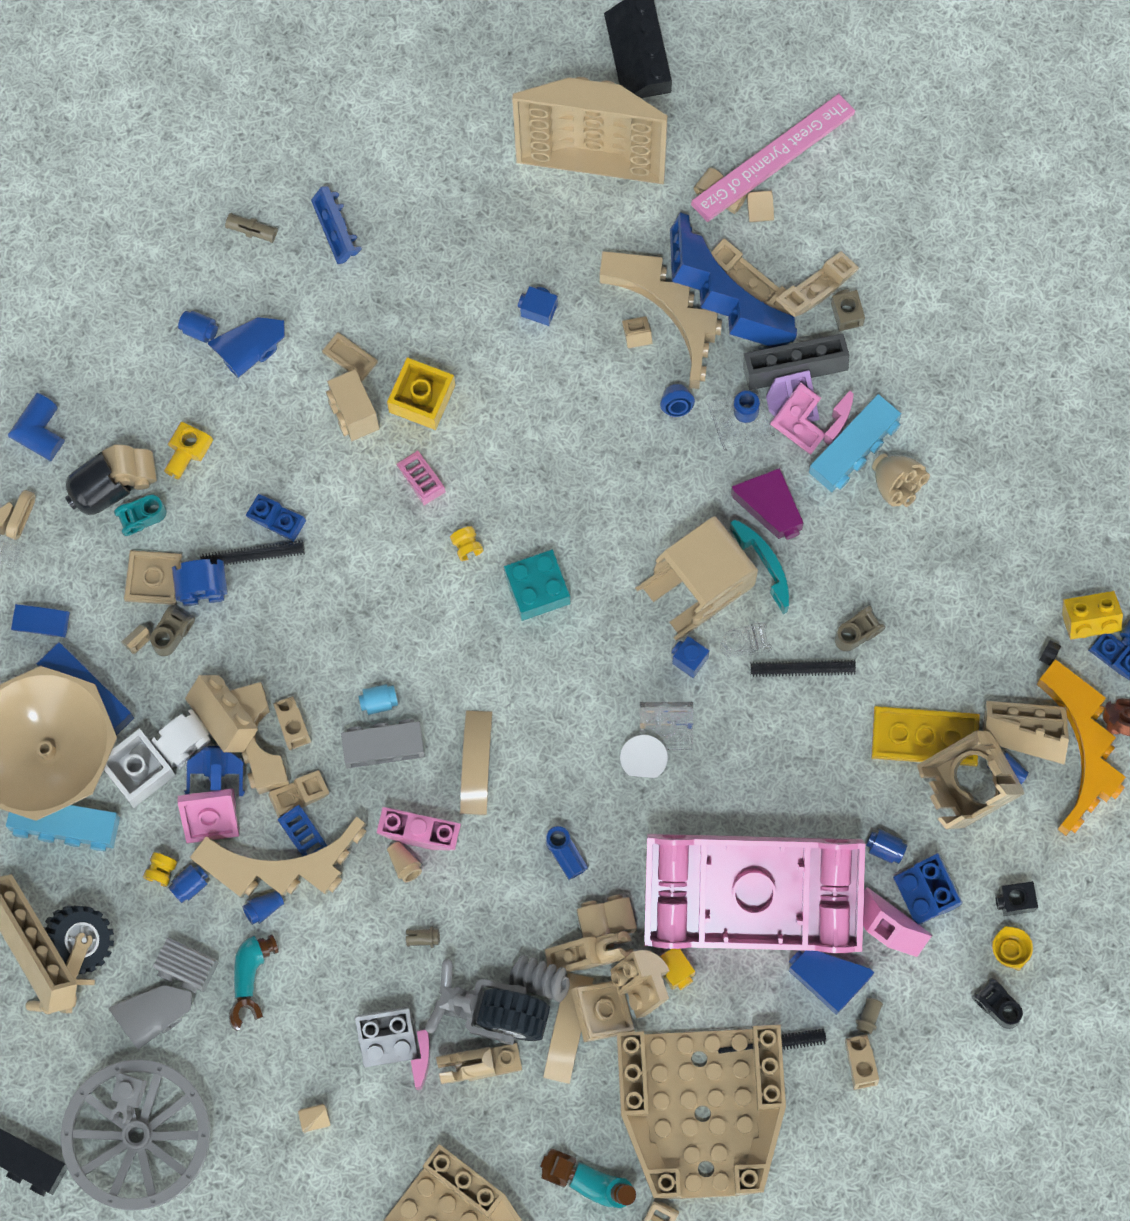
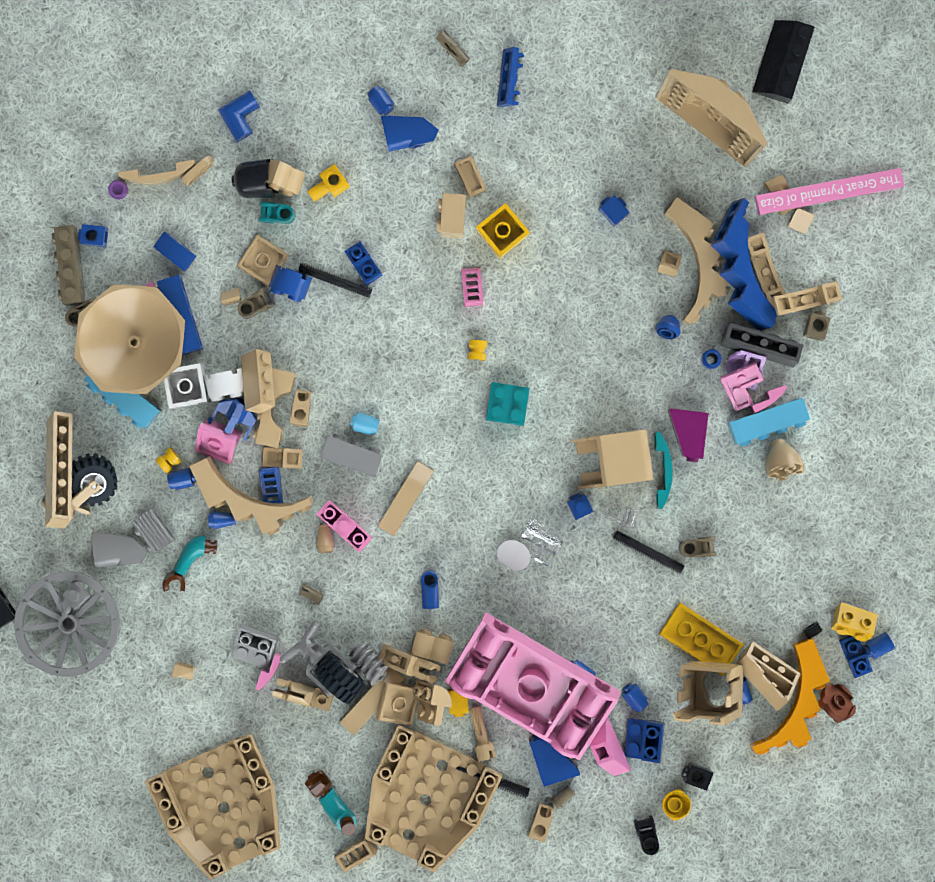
camera: 25 degrees right, 15 degrees up
(739, 1007) = (484, 748): none -> tan piece

